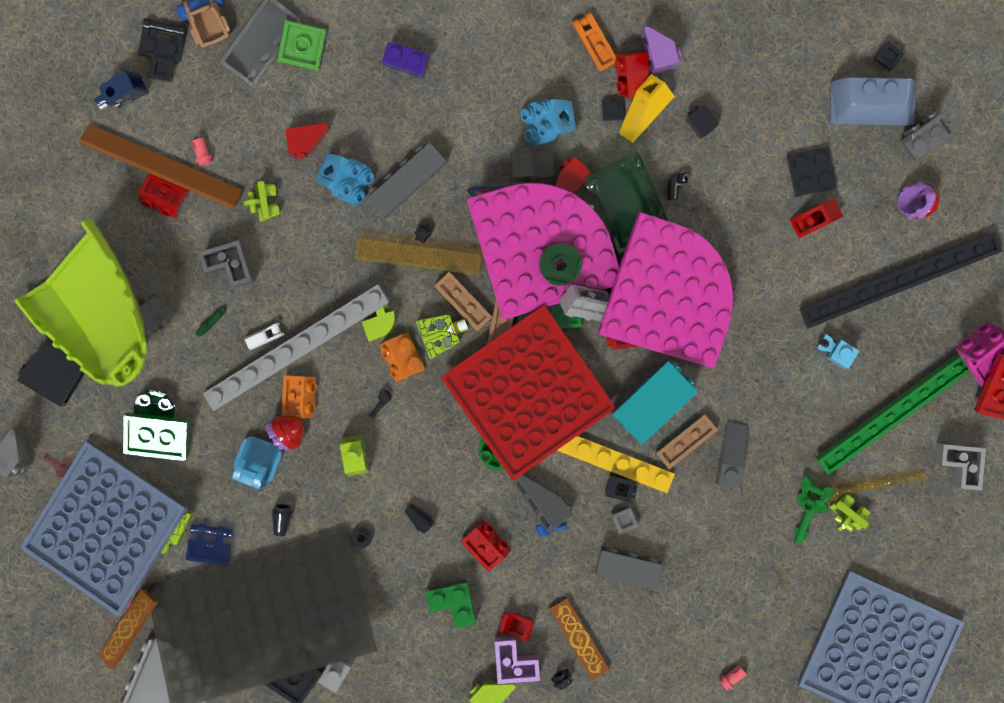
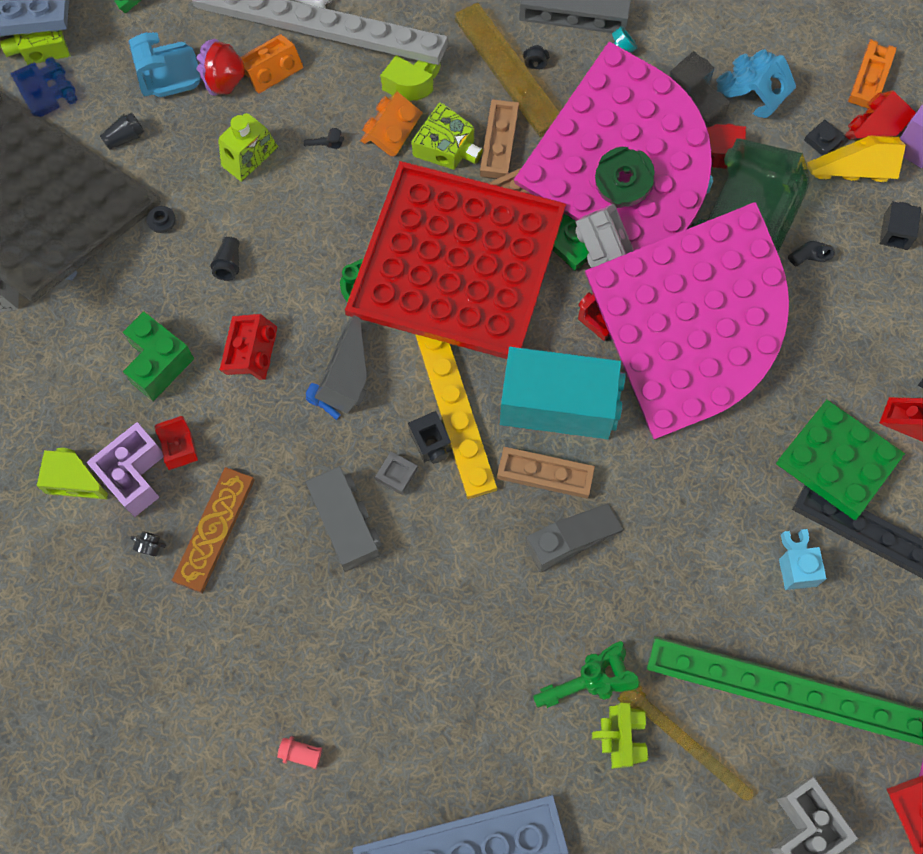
camera: 45 degrees right, 20 degrees down
(455, 172) = (624, 40): none -> teal tile
(803, 281) = (840, 459): none -> green plate

